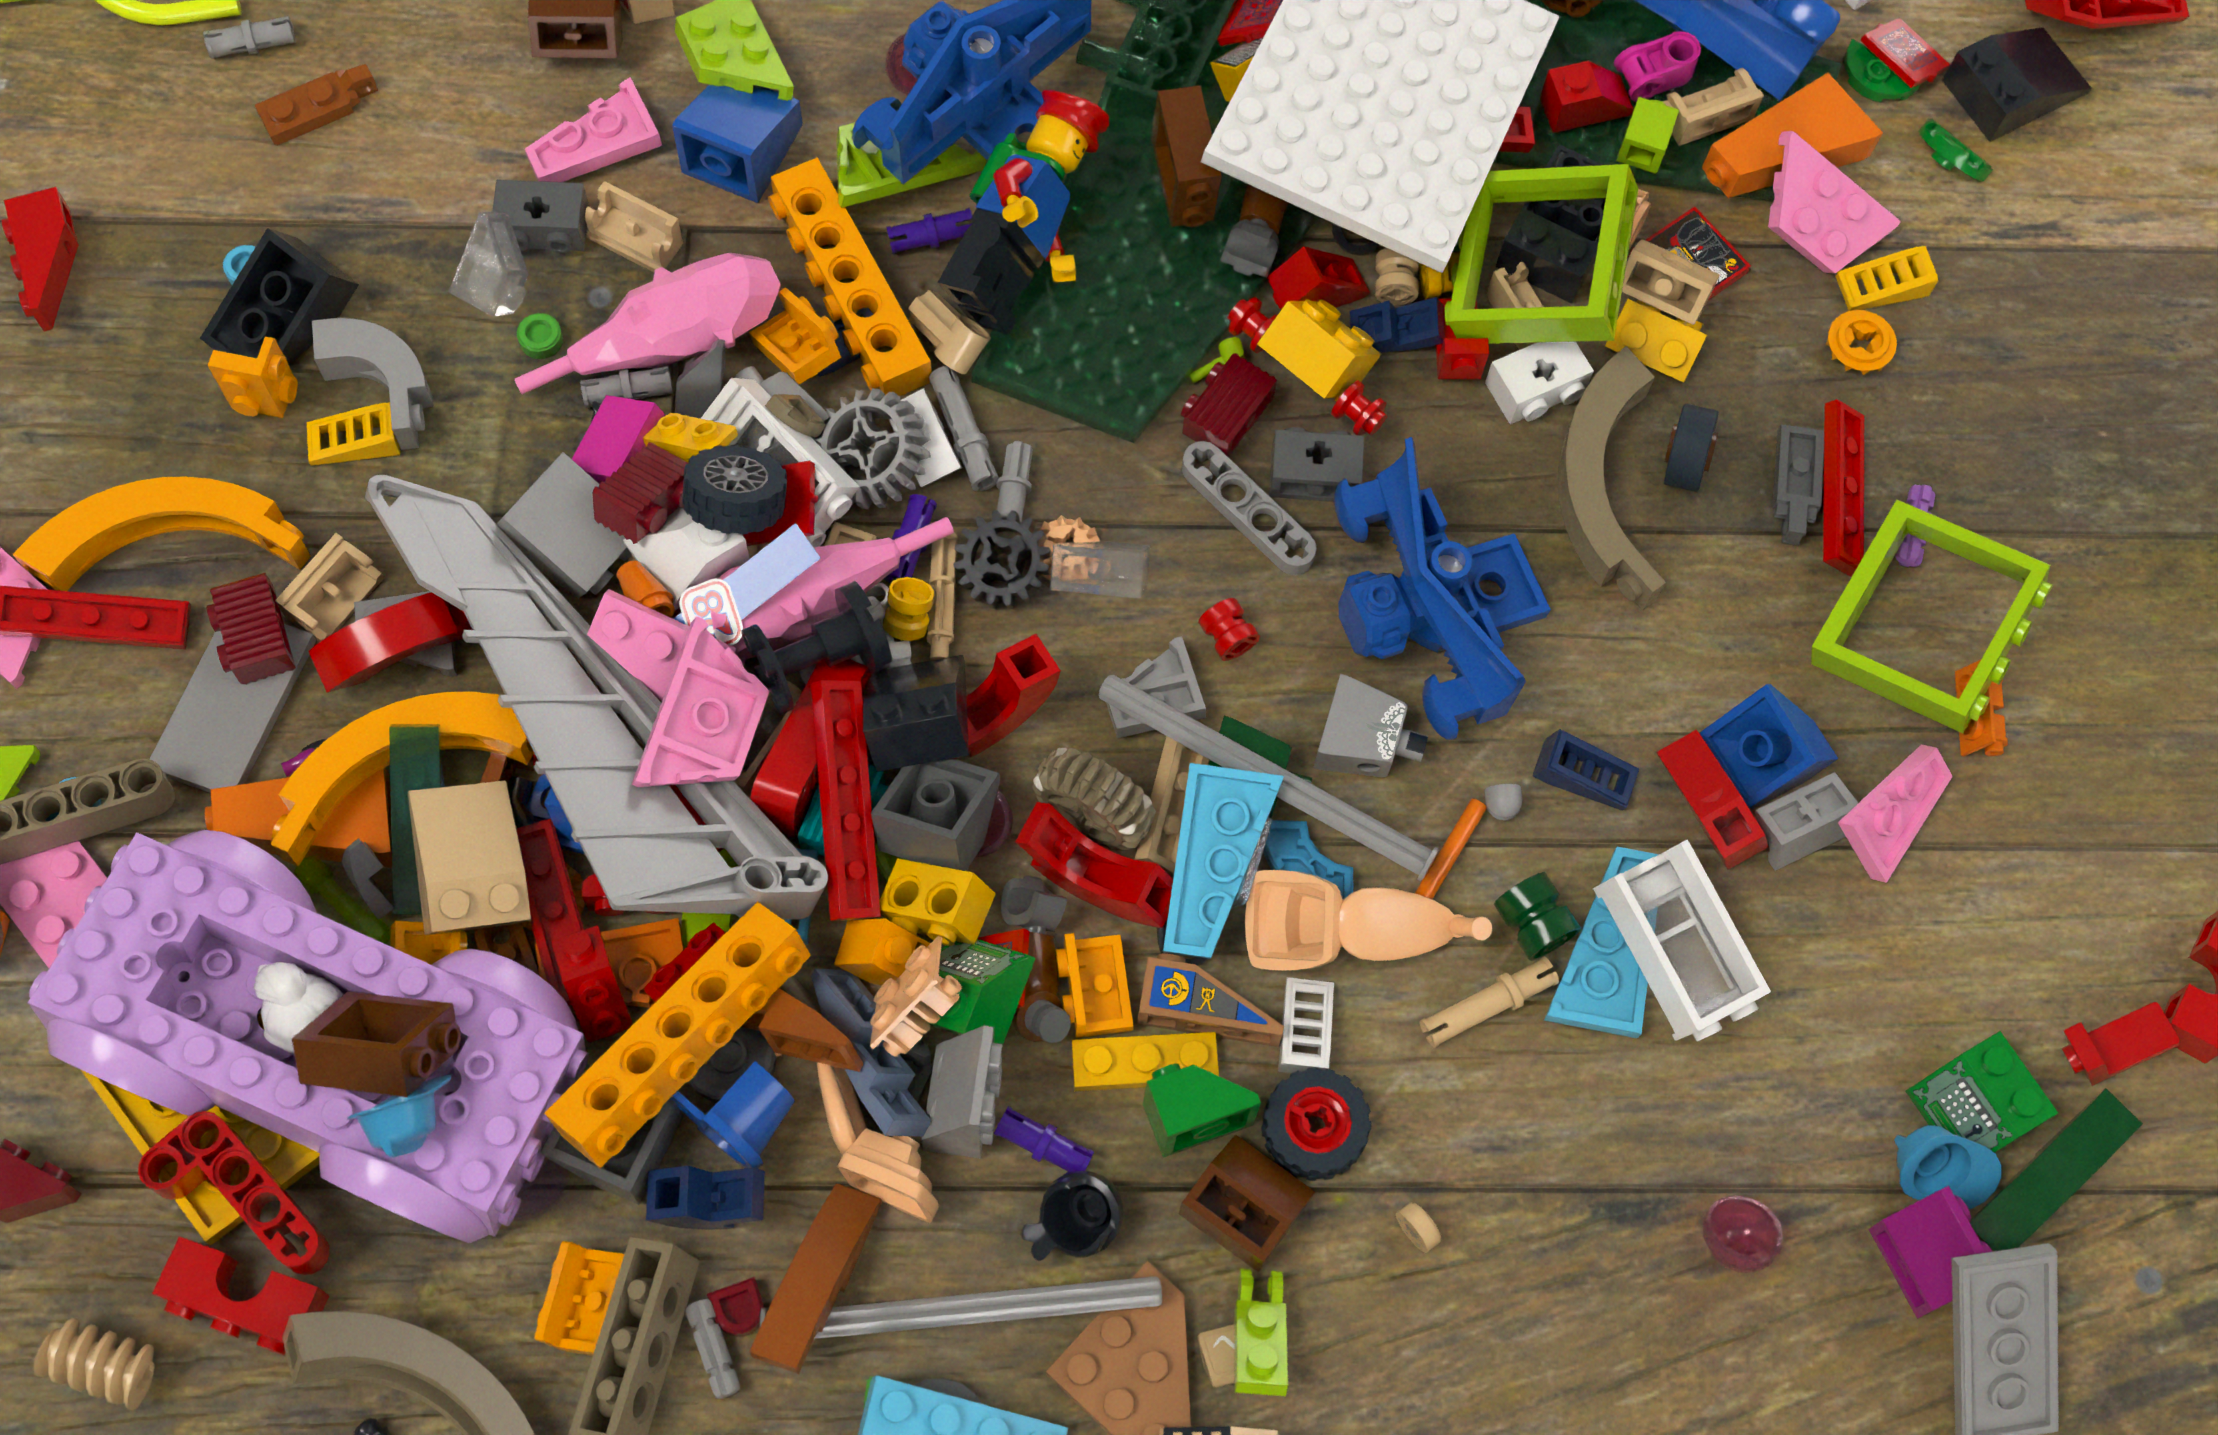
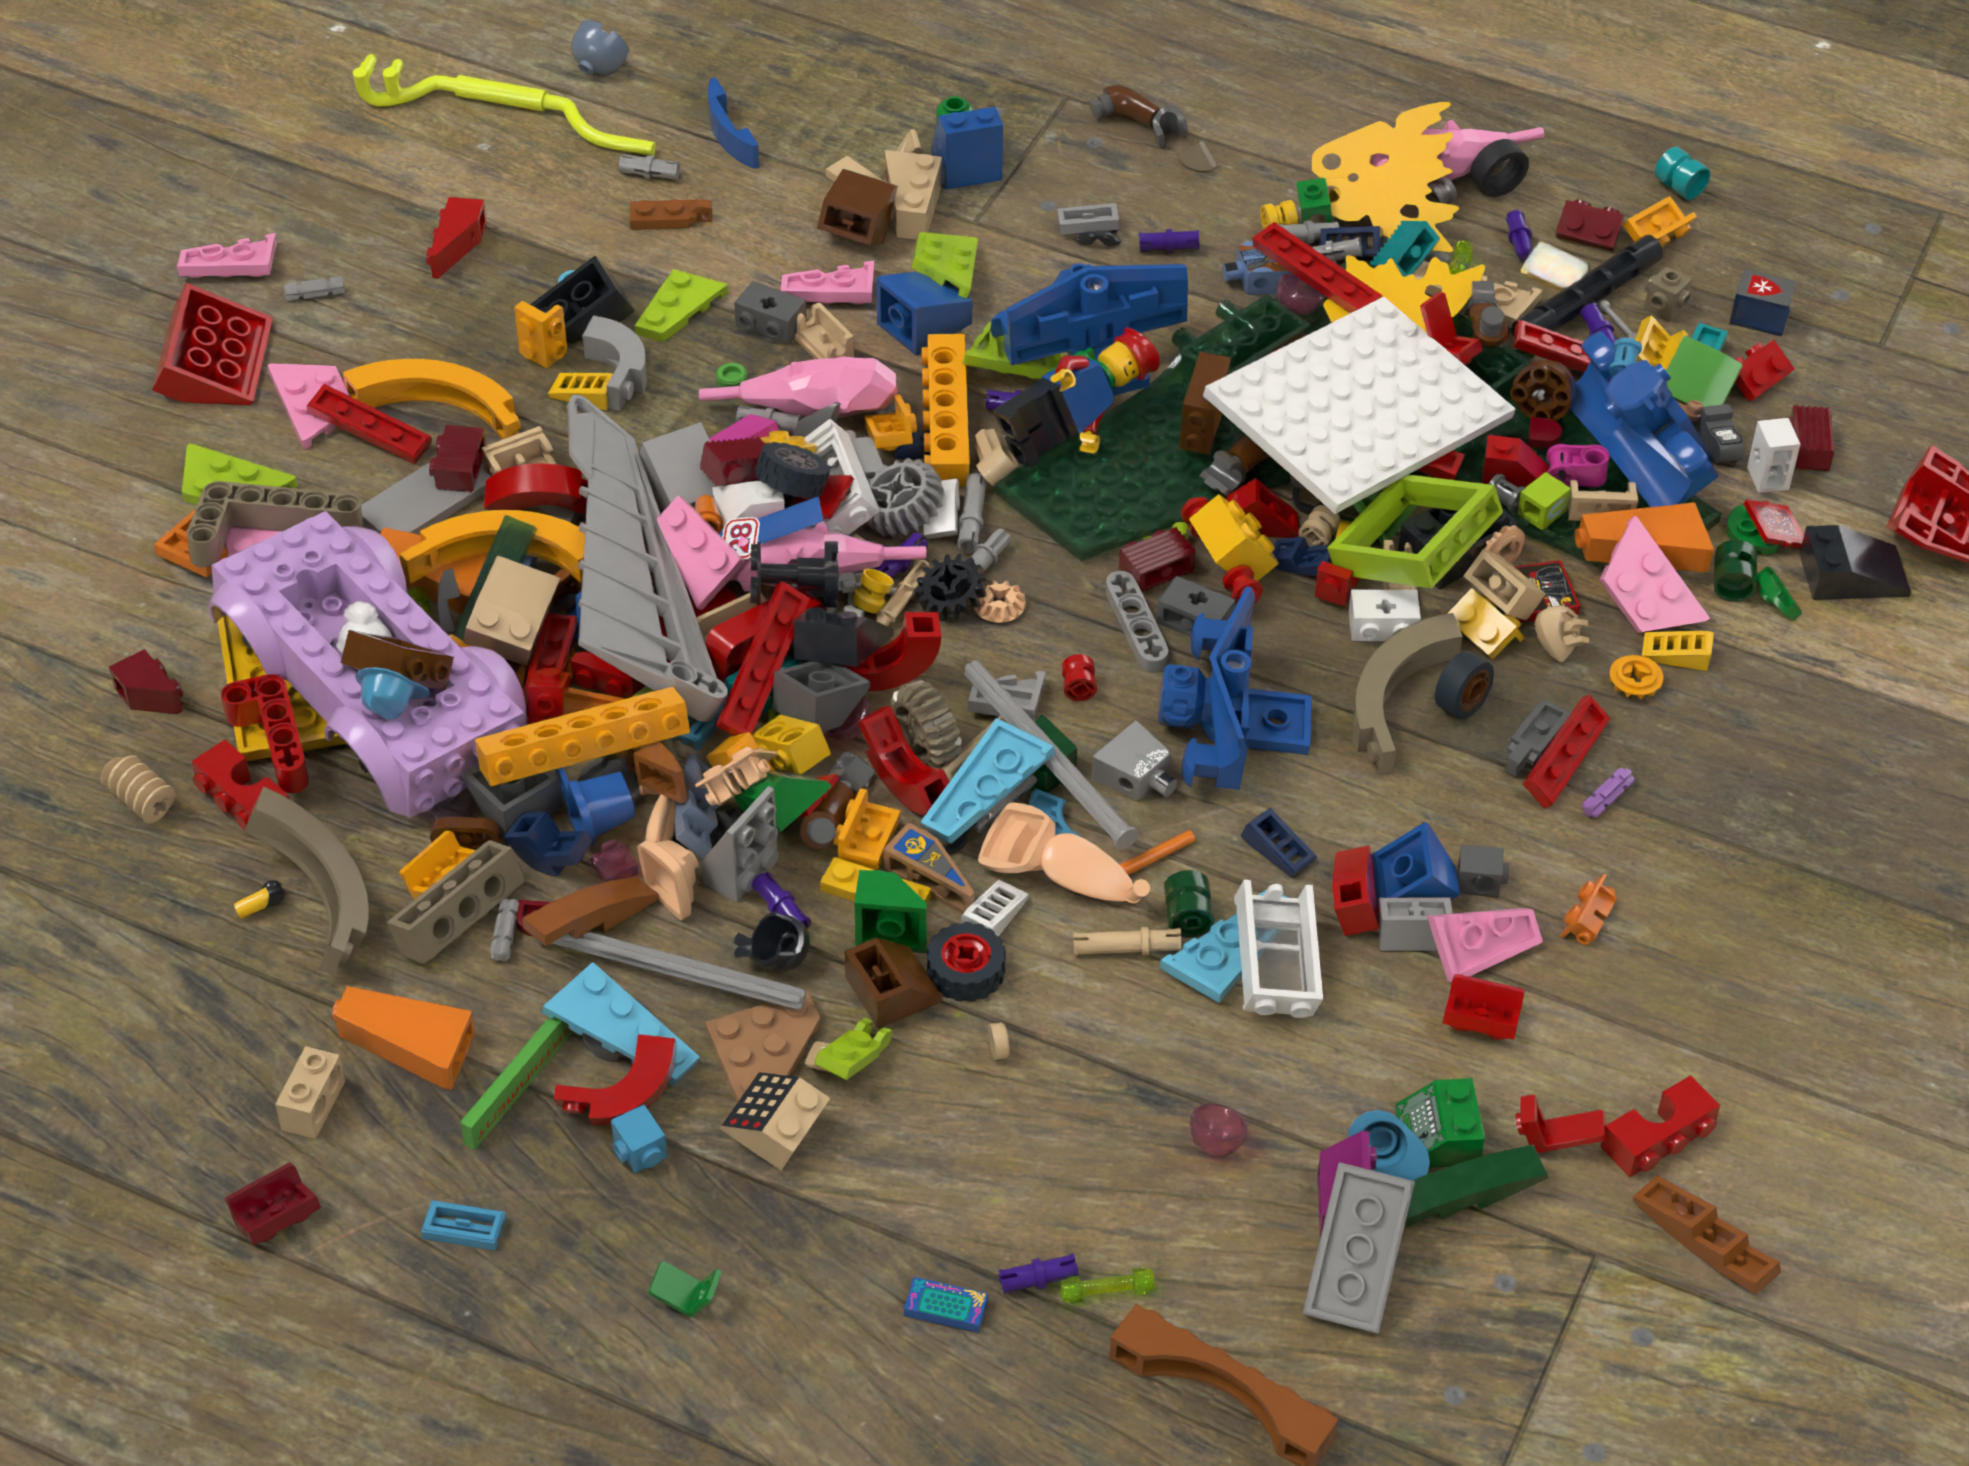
camera: 30 degrees right, 20 degrees down
(404, 245) = (676, 302): none -> lime wing
(491, 267) = (721, 324): clear slope -> none
(602, 1217) = (469, 831): none -> reddish brown plate
(703, 717) = (699, 582): bright pink wing -> none
(796, 414) = (861, 456): dark tan tile -> none
(798, 1177) = (614, 862): none -> clear pink tile
(1100, 568) = (1012, 611): clear slope -> none
(1503, 800) = (1209, 836): light grey hinge -> none
(1590, 29) = (1544, 433): none -> dark red tile
(1598, 140) = (1507, 492): none -> dark grey bush
(1749, 317) = (1559, 631): none -> tan piece
(1841, 706) = (1481, 870): none -> dark grey brick
(1895, 686) = (1552, 798): lime window -> none
(1903, 146) = (1735, 570): none -> dark green wheel
(1943, 910) = (1483, 1007): none -> red bracket

